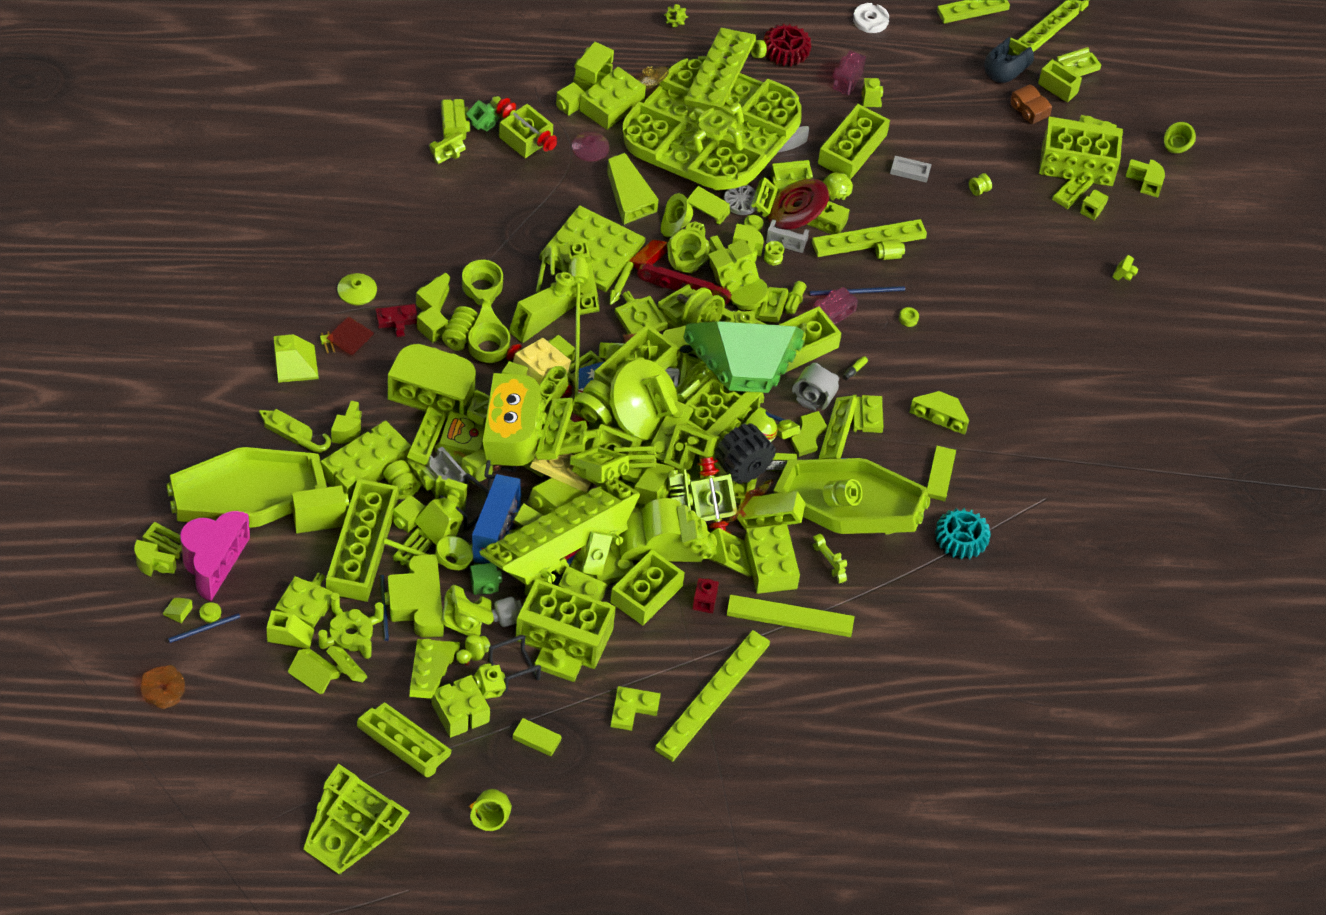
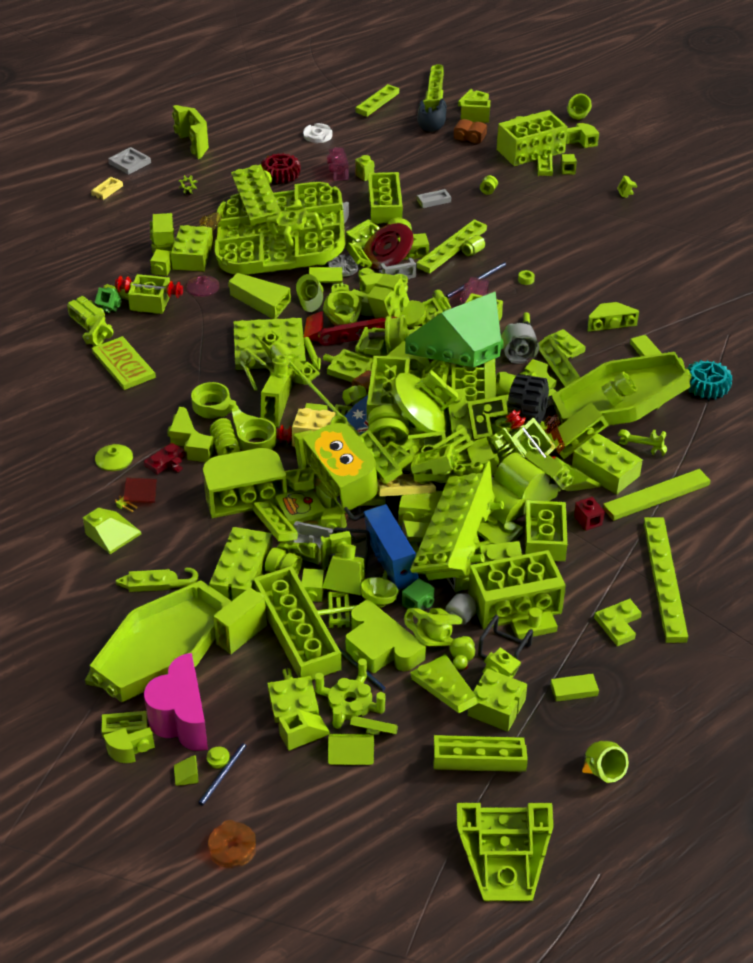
camera: 30 degrees left, 10 degrees down
(347, 427) = (200, 550): lime brick -> none
(444, 193) = (123, 363): none -> lime tile
(596, 553) = (491, 524): plate -> none

